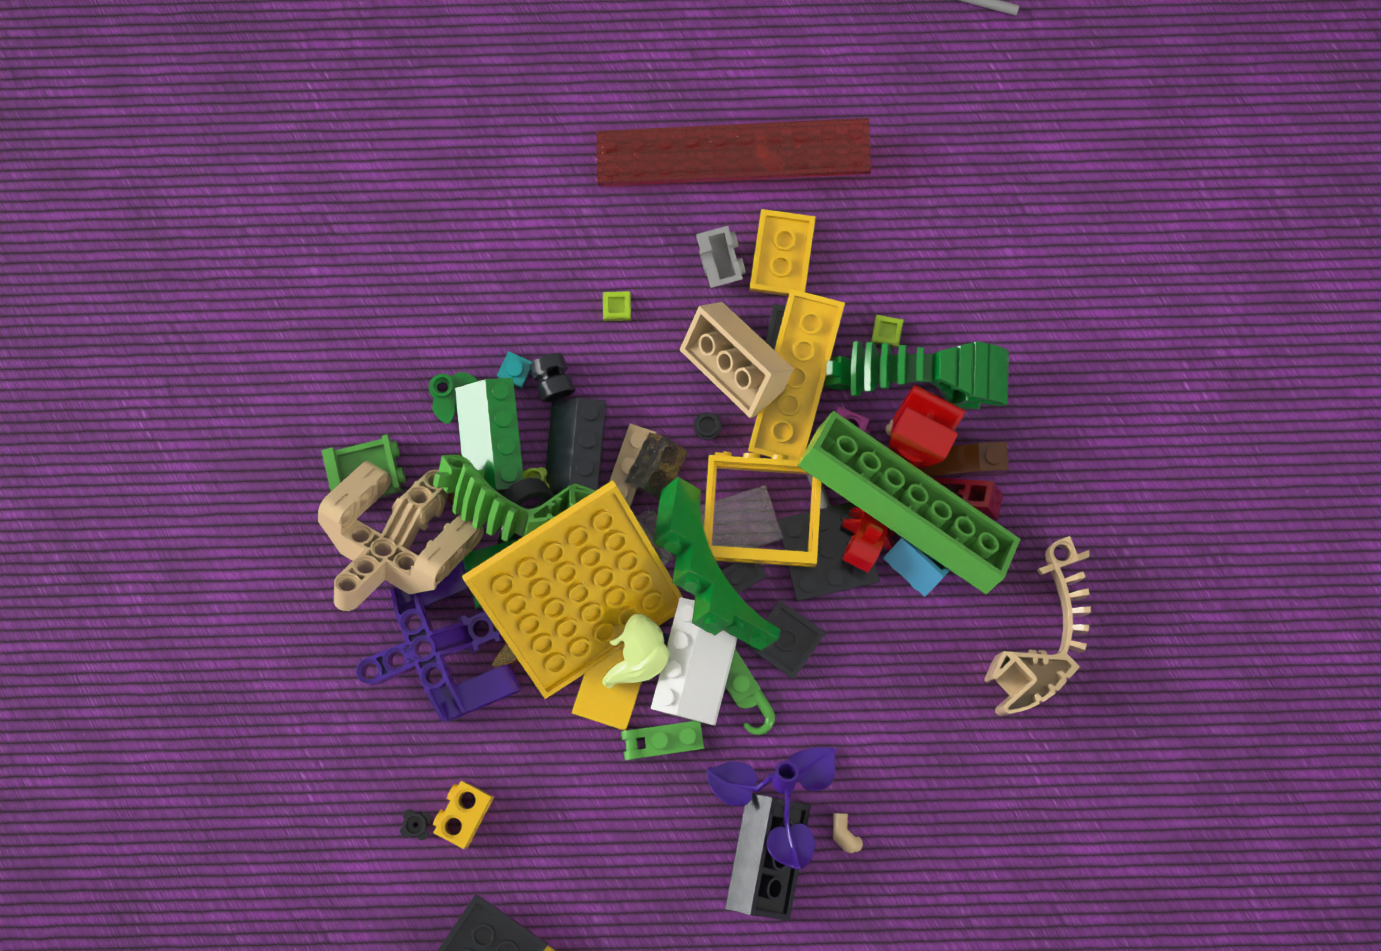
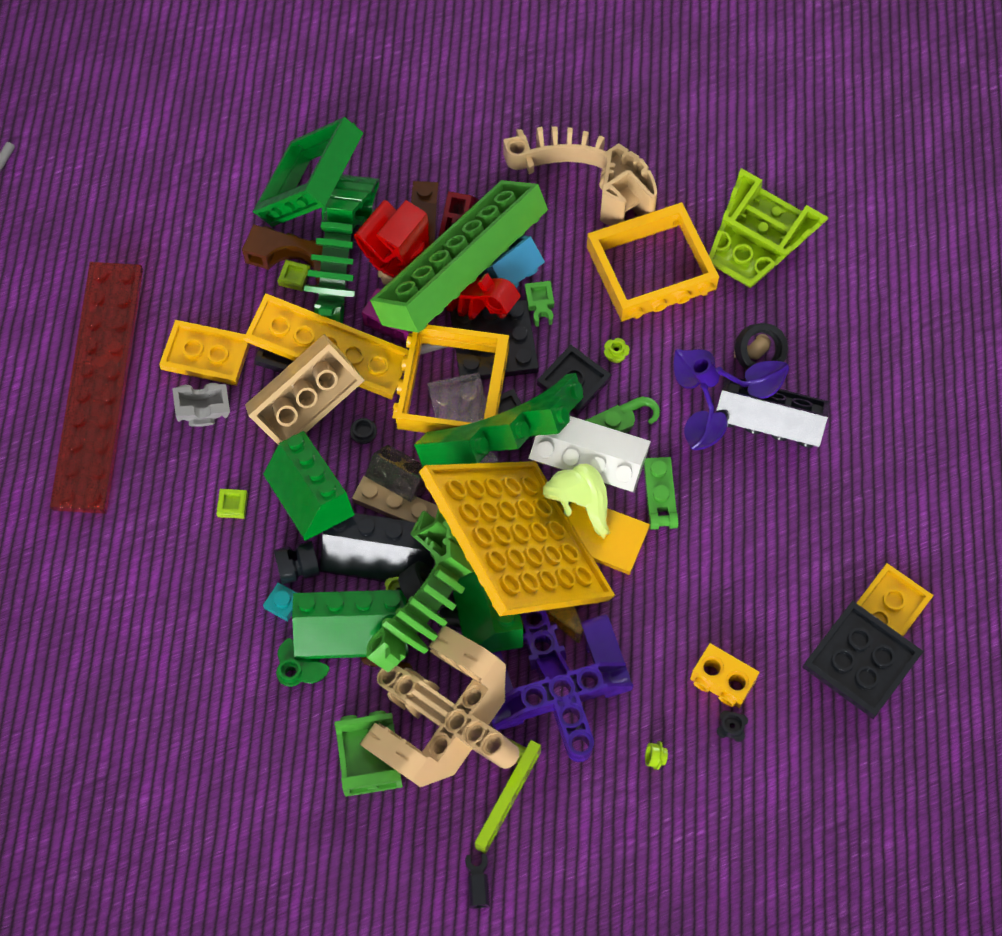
camera: 90 degrees left, 15 degrees down
(247, 587) = (478, 884): none -> black bar
(367, 621) = (526, 762): none -> lime piece
(379, 749) = (656, 755): none -> lime plate
(627, 376) = (307, 487): none -> green slope
(820, 683) = (616, 356): none -> lime plate
(854, 828) = (742, 340): none -> black tyre
(882, 595) = (541, 300): none -> bright green plate
(913, 298) = (267, 247): none -> reddish brown arch
(974, 681) = (639, 228): none -> yellow window
(992, 836) = (759, 231): none -> lime wedge
(994, 348) = (282, 198): none -> green window

